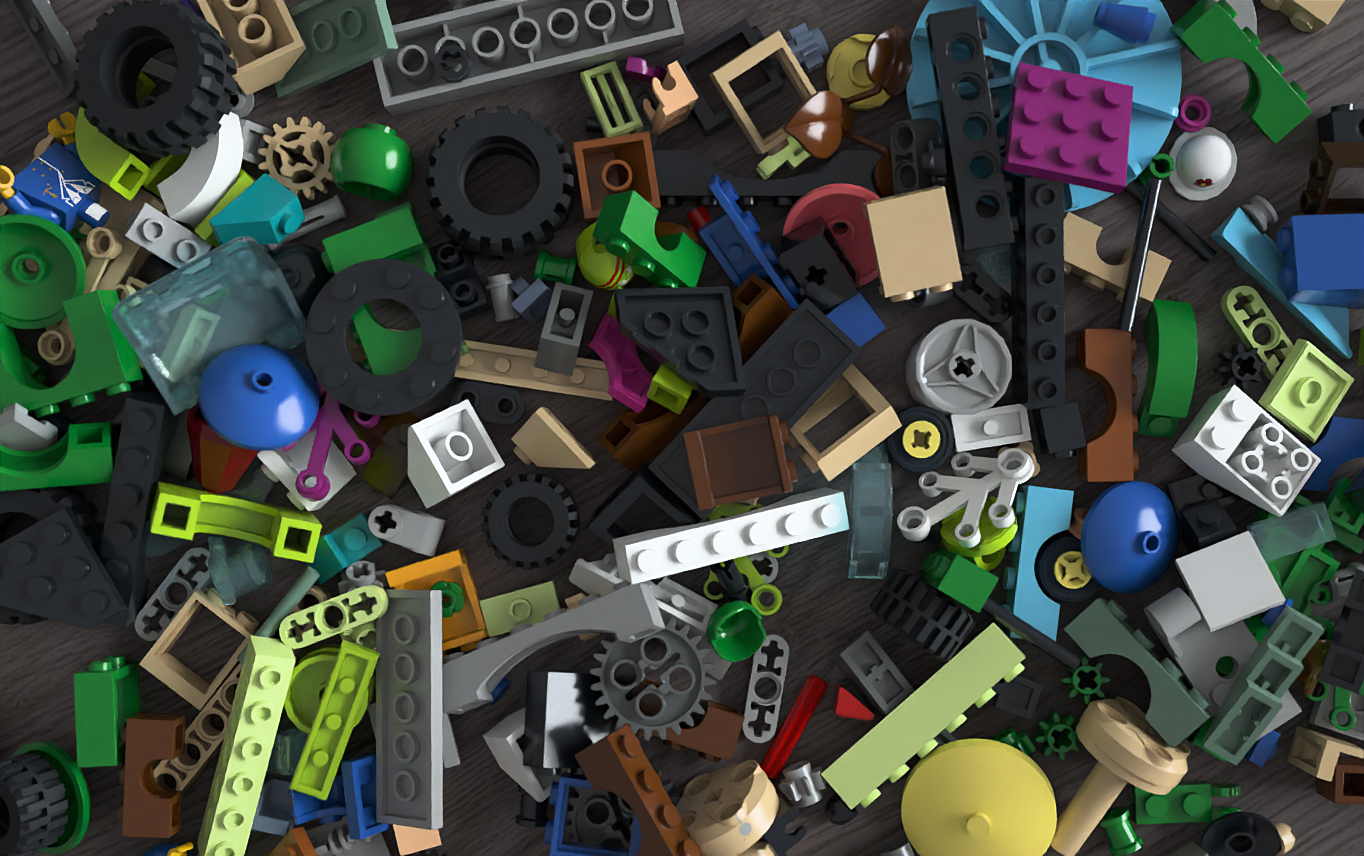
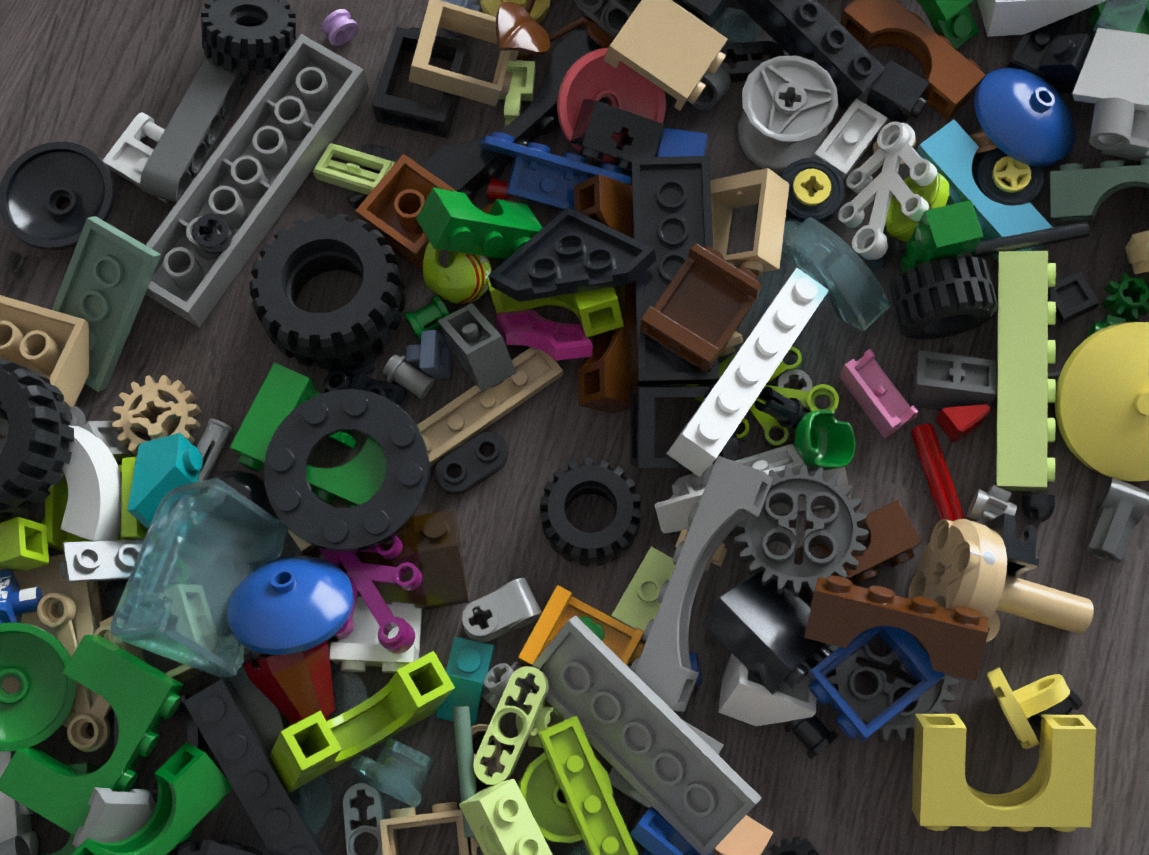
camera: 40 degrees left, 15 degrees down
(372, 163) = (217, 365): green wheel -> none
(449, 453) = (481, 517): white slope -> none
(550, 443) = (551, 438): tan slope -> none
(638, 70) = (357, 132): magenta tile -> none
(675, 98) = (398, 121): light nougat hinge -> none
(751, 713) = (891, 454): light grey beam -> none
(813, 629) = (877, 394): none -> bright pink hinge
(1096, 681) = (1114, 241): green gear -> none

